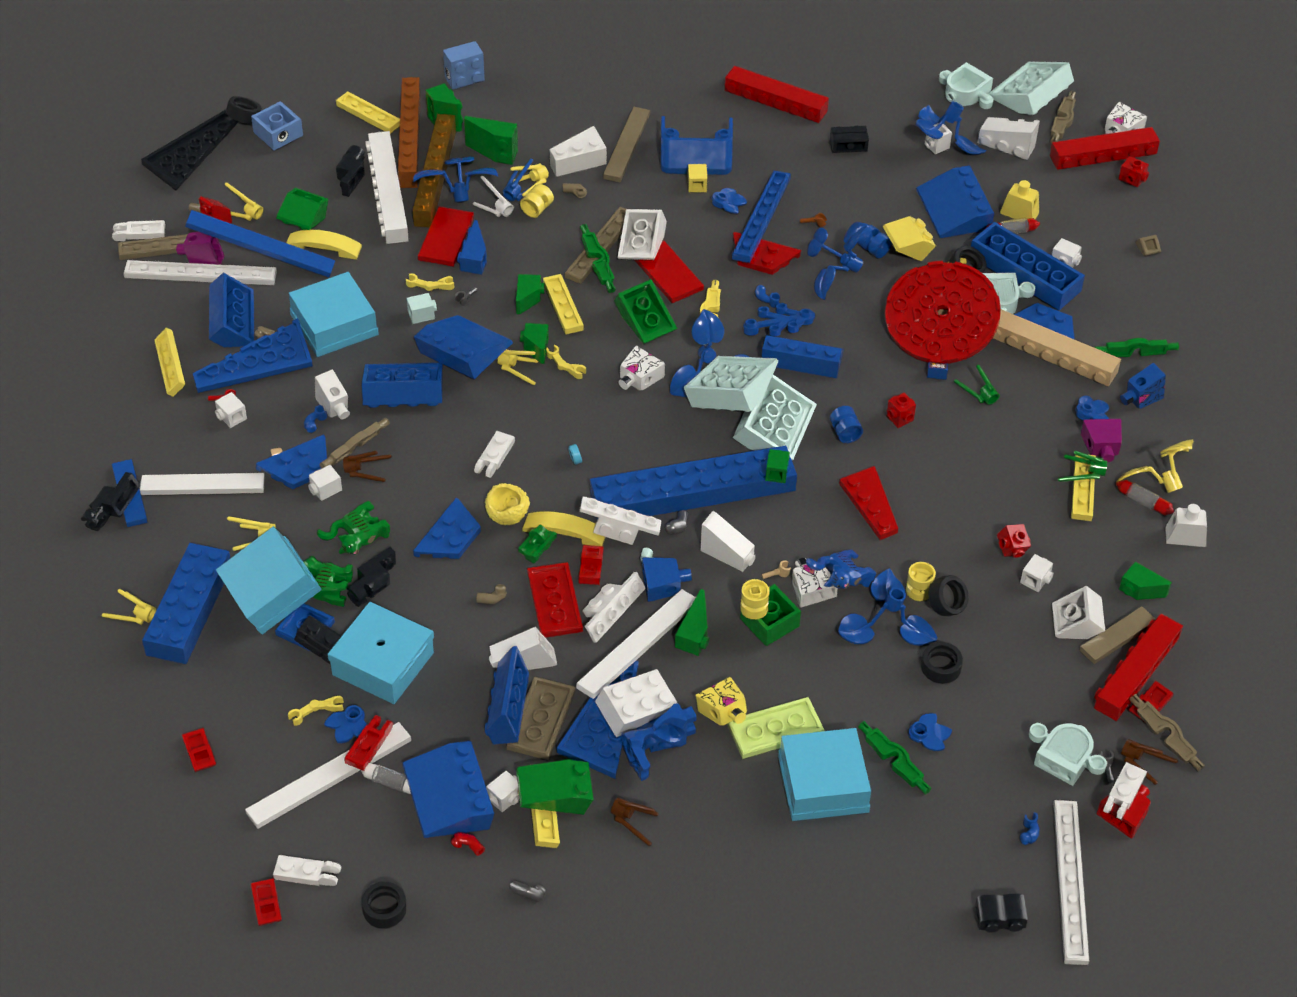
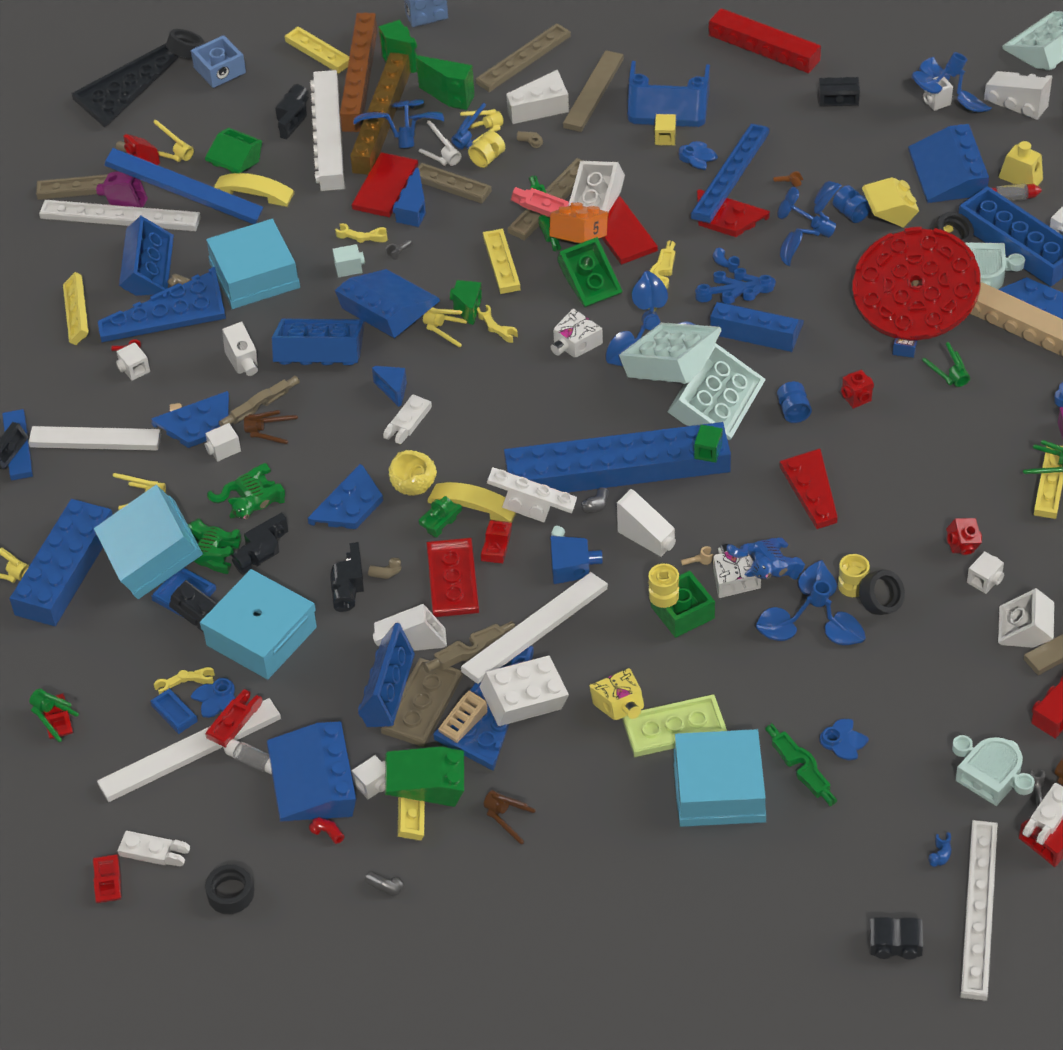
camera: 10 degrees right, 0 degrees up
(138, 230) = (60, 168): white hinge -> none
(186, 737) = (43, 702): none -> green plant
(309, 422) = (215, 377): blue arm -> none
(309, 738) = (174, 711): none -> blue tile
(458, 607) = (347, 580): none -> black plate
(475, 420) = (391, 381): none -> blue slope
(510, 233) = (454, 183): none -> dark tan tile
(528, 292) = (465, 247): green slope -> none
(558, 115) = (523, 57): none -> dark tan tile
(571, 669) = (460, 652): none -> dark tan piece
(575, 454) = (493, 422): medium azure tile -> none
(587, 717) = (473, 705): none -> tan slope
(594, 249) = (537, 201): none -> coral hinge
(610, 605) = (512, 585): white bracket -> none
(631, 266) = (578, 223): none -> orange brick
(659, 734) = (550, 724): blue hips -> none
(693, 631) = (597, 616): green slope -> none
(940, 675) = (868, 650): black tyre -> none
(967, 86) = (980, 36): light aqua piece -> none

